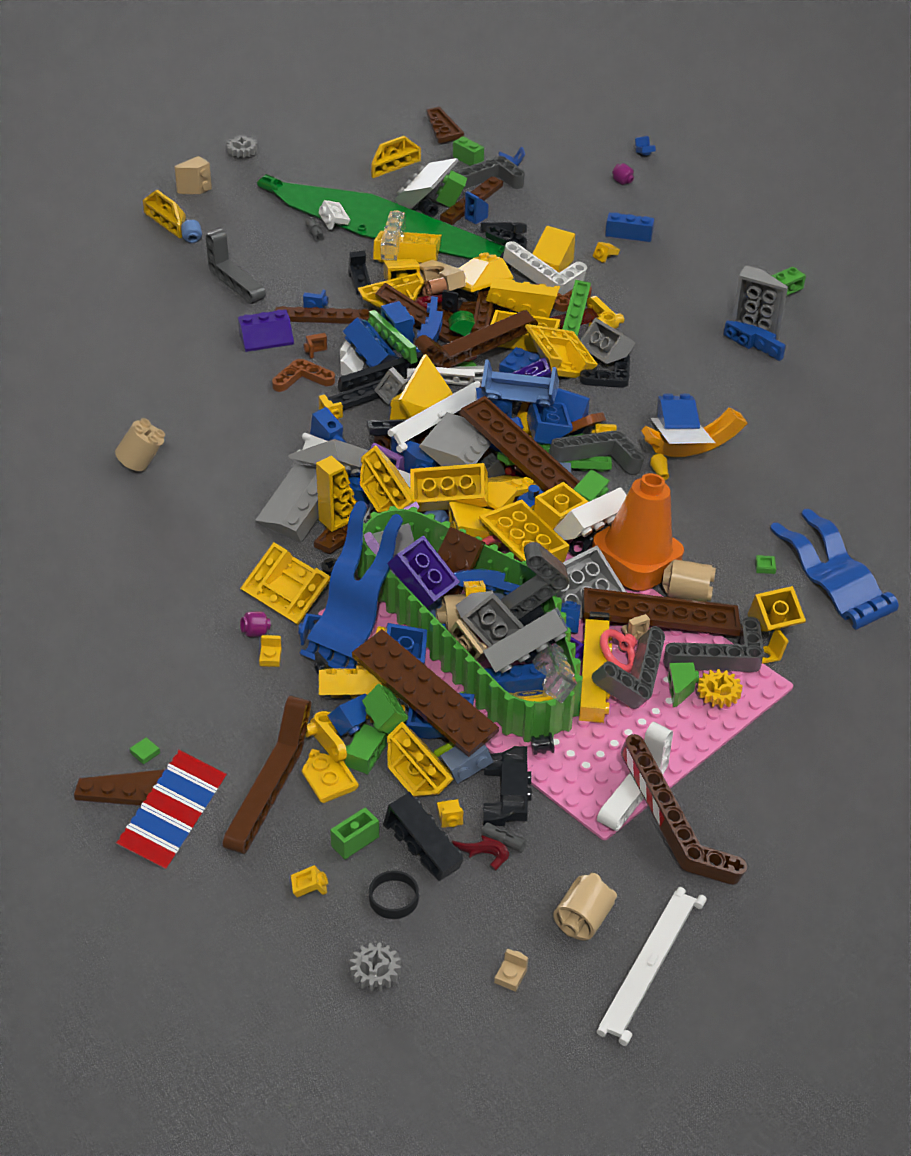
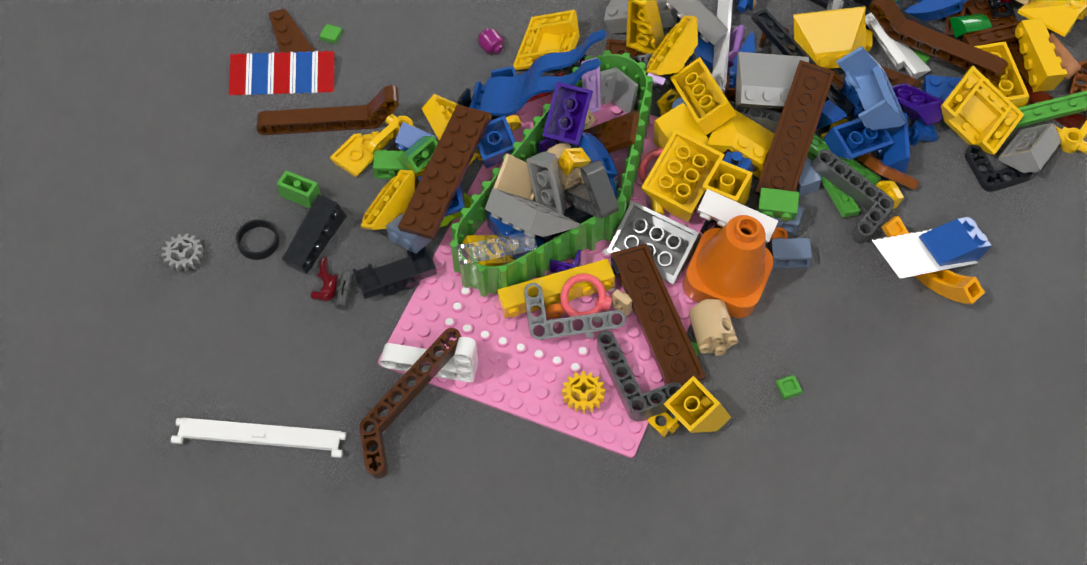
camera: 70 degrees right, 15 degrees up
(270, 651) = (469, 65): yellow bracket -> none
(308, 881) = (246, 183): yellow bracket -> none
(432, 415) = (789, 46): white piece -> none
(450, 813) = (354, 246): yellow bracket -> none
(512, 970) = (214, 342): tan bracket -> none
(539, 744) = (450, 280): black bush -> none
(572, 612) = (610, 244): blue bracket -> none
(584, 907) = (284, 366): tan cylinder -> none
(659, 465) = (871, 257): yellow cone -> none
(681, 681) = (575, 359): bright green slope -> none
(844, 579) = (804, 459): blue flag -> none

